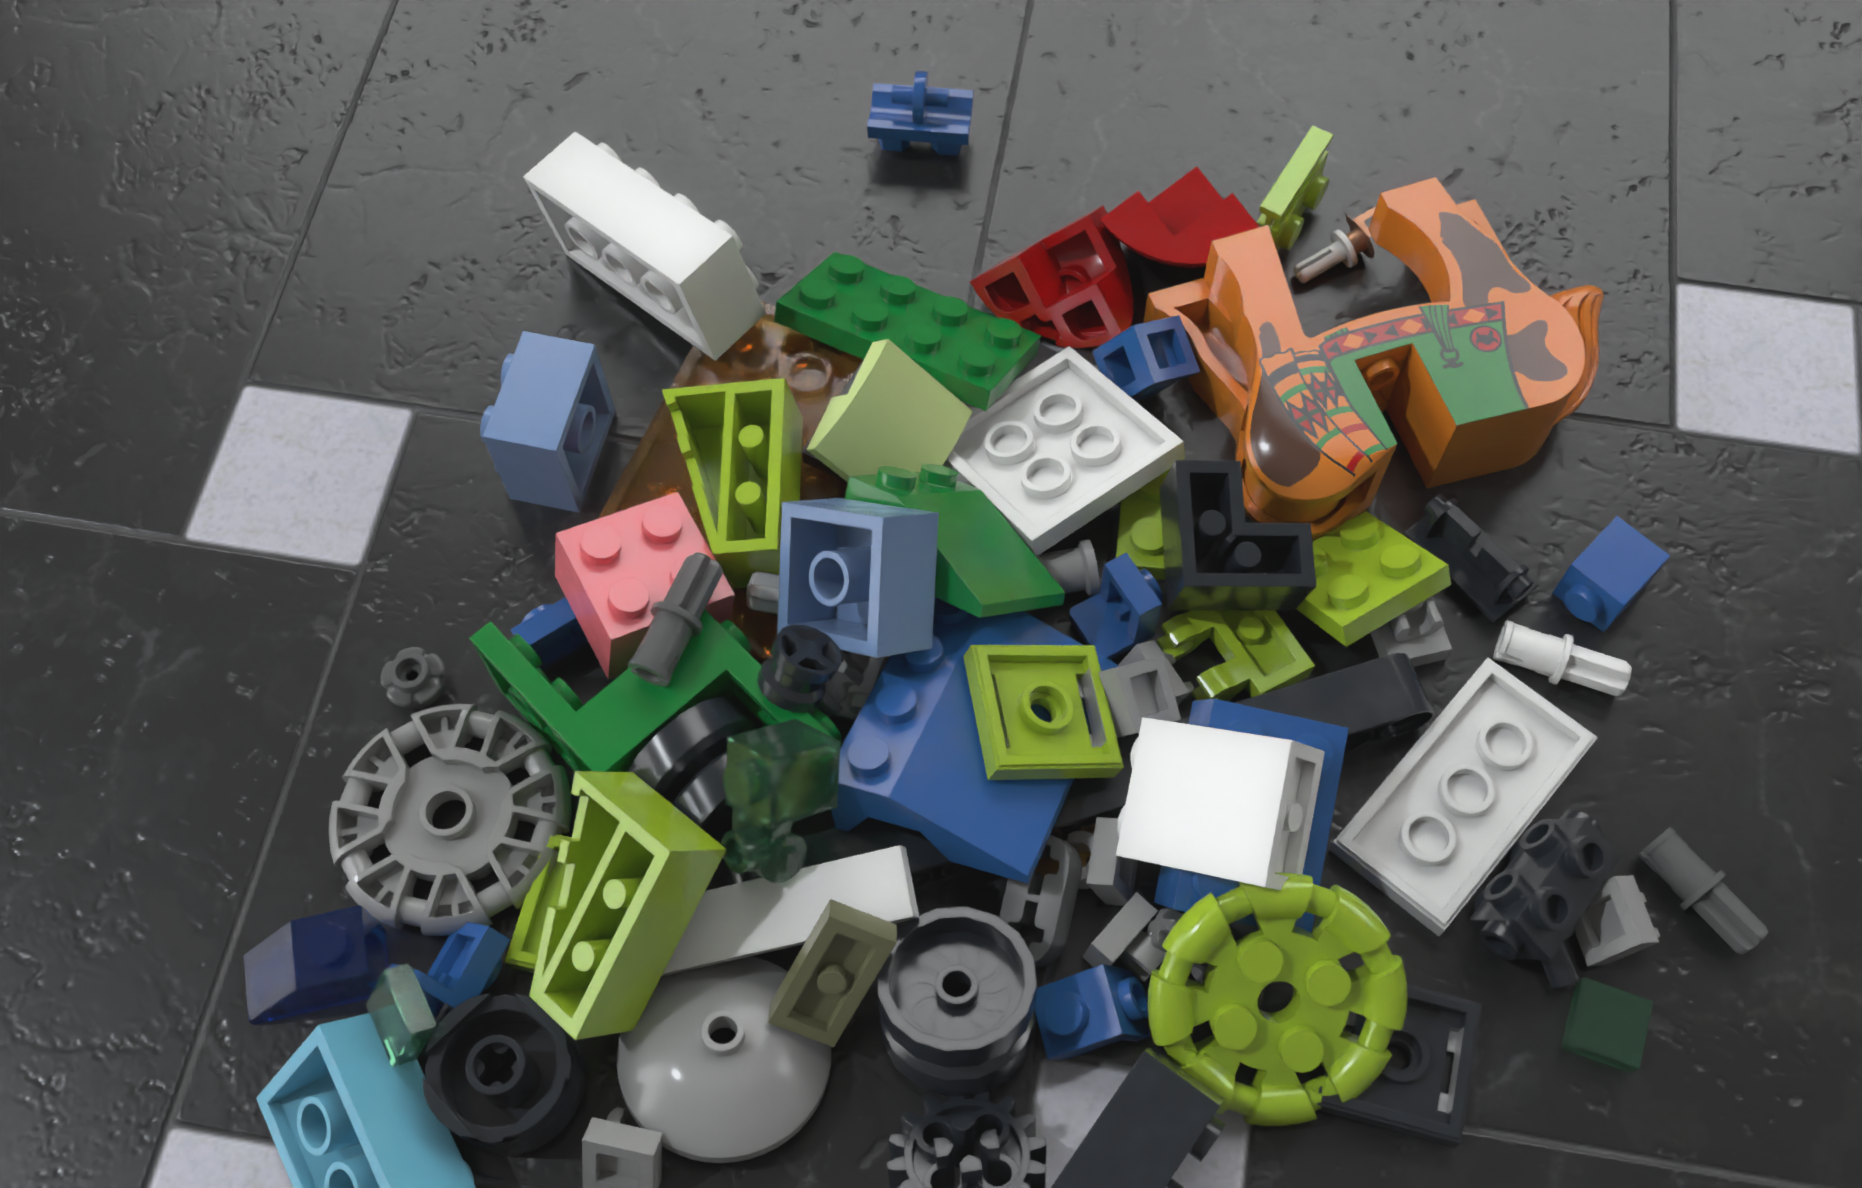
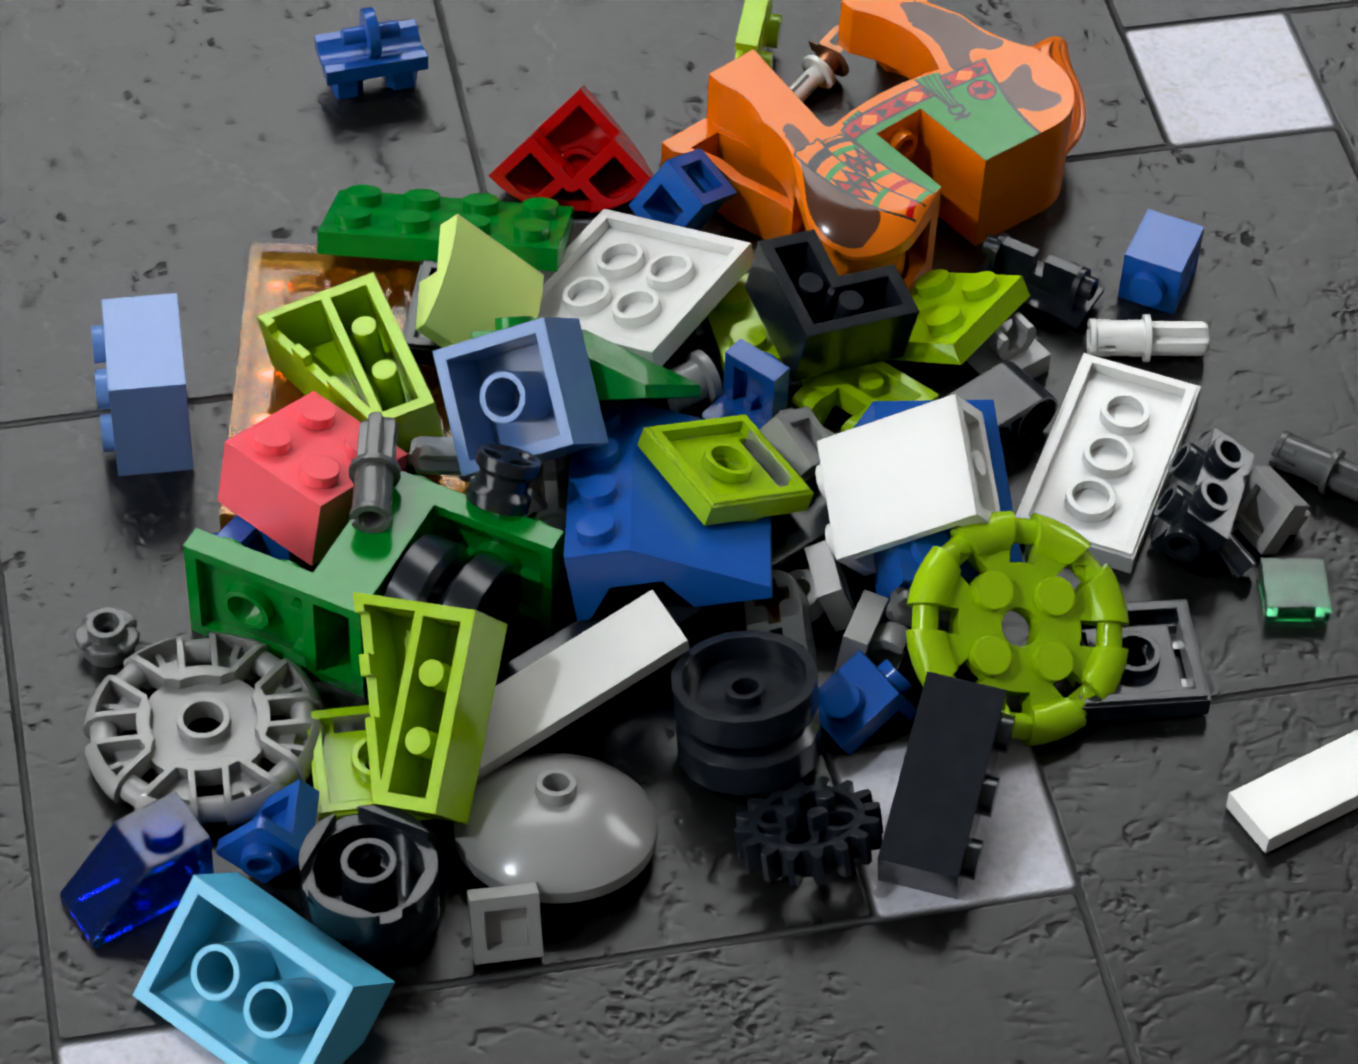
camera: 25 degrees left, 15 degrees down
(401, 1014) = (260, 854): clear green tile -> none
(647, 243) = (169, 213): white brick -> none
(770, 783) = (522, 567): clear green brick -> none
(832, 973) = (634, 708): olive plate -> none
(1178, 222) = (663, 79): red brick -> none

